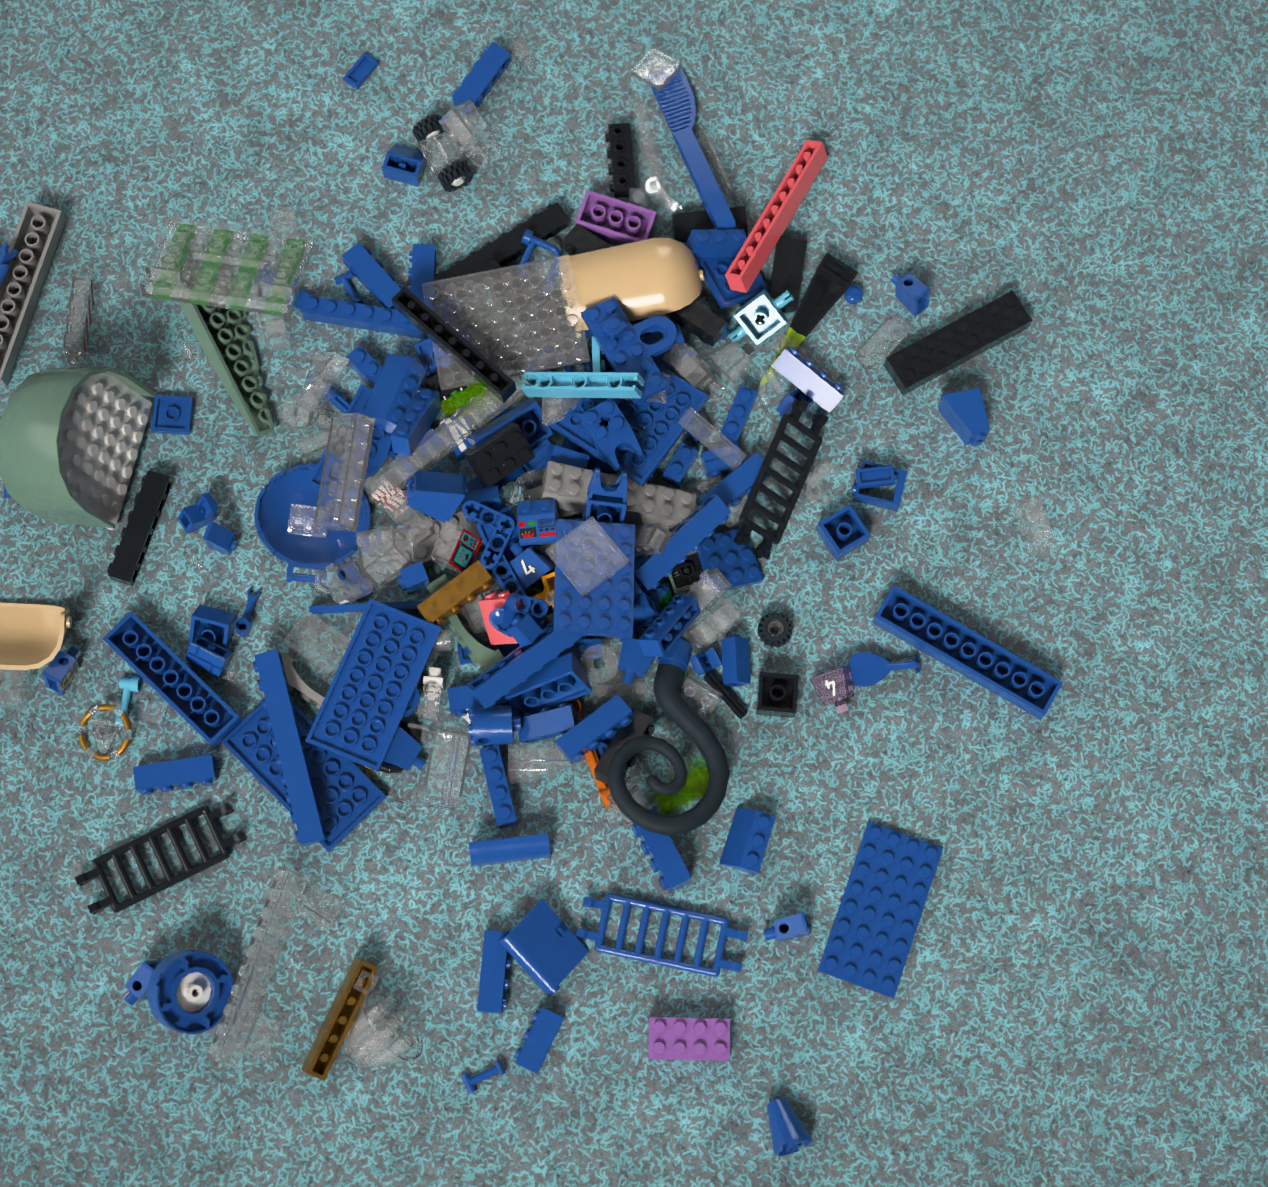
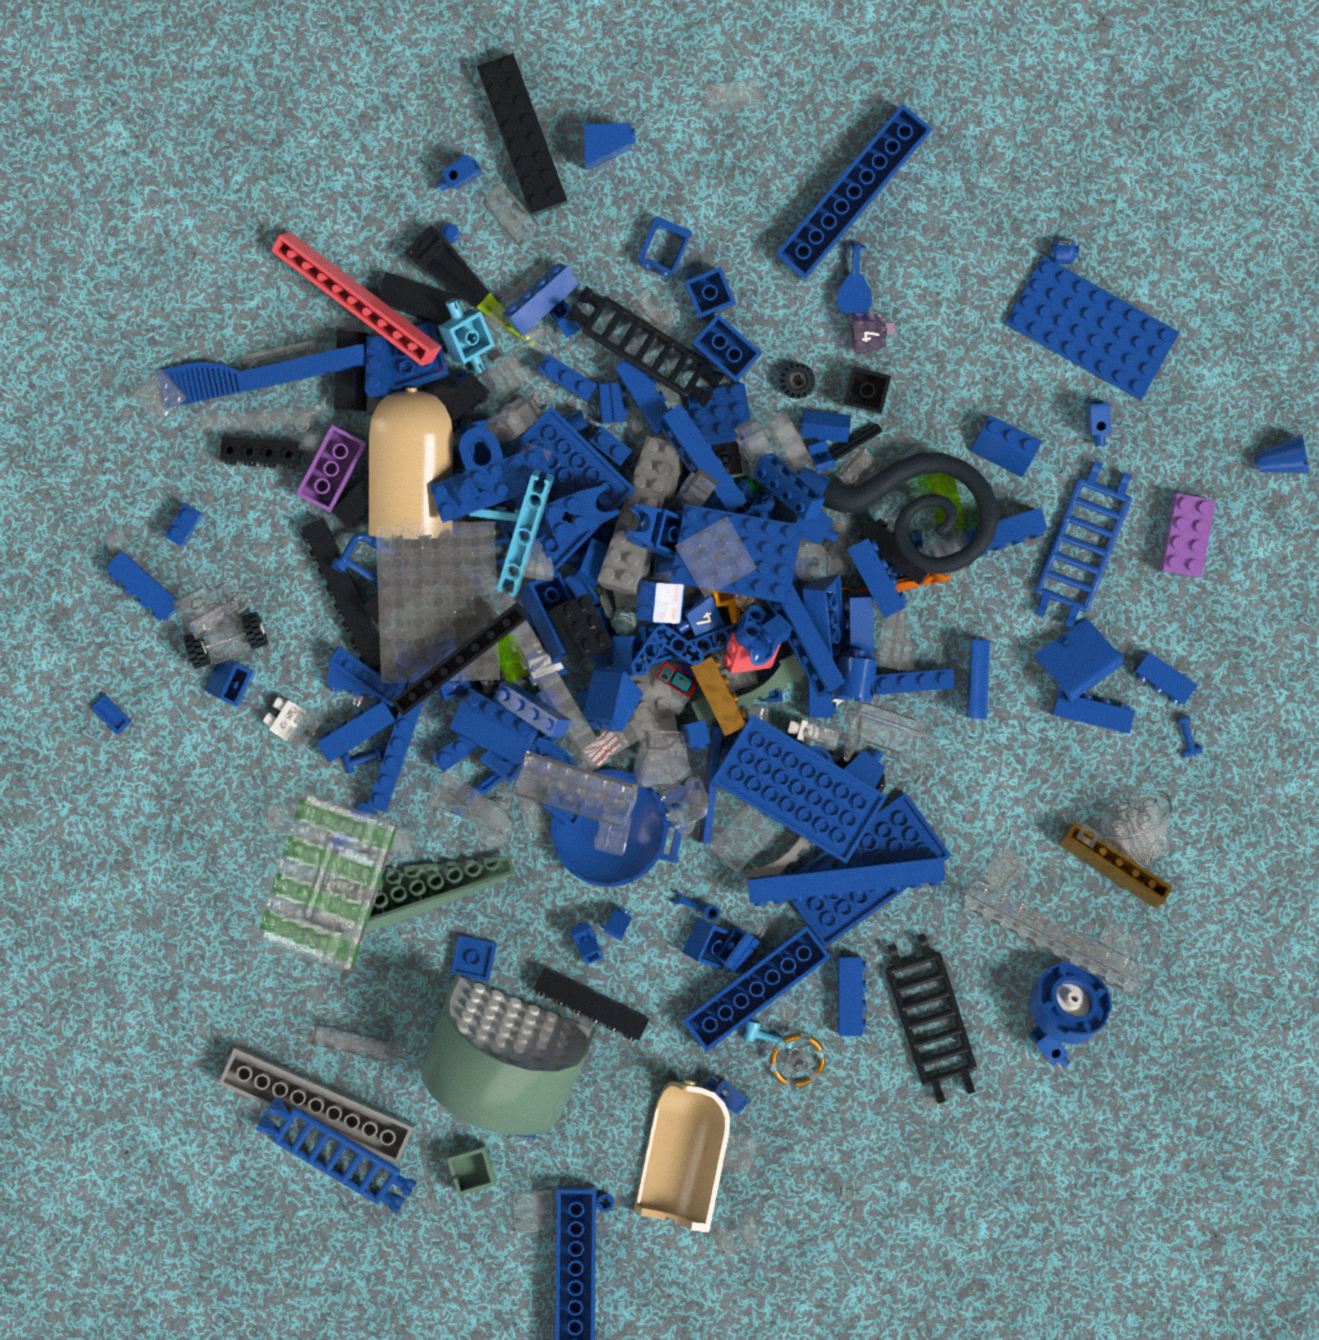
camera: 75 degrees left, 15 degrees up
(373, 224) = (287, 721): none -> clear hips
(430, 267) = (363, 675): none -> blue tile
(543, 104) = (183, 525): none -> blue brick
(639, 768) = (917, 539): none -> blue bush
(712, 438) = (595, 410): clear tile -> none
(792, 556) = (726, 349): none -> blue brick
(875, 477) = (658, 250): blue tile -> none
(951, 868) = (1064, 251): none -> blue head

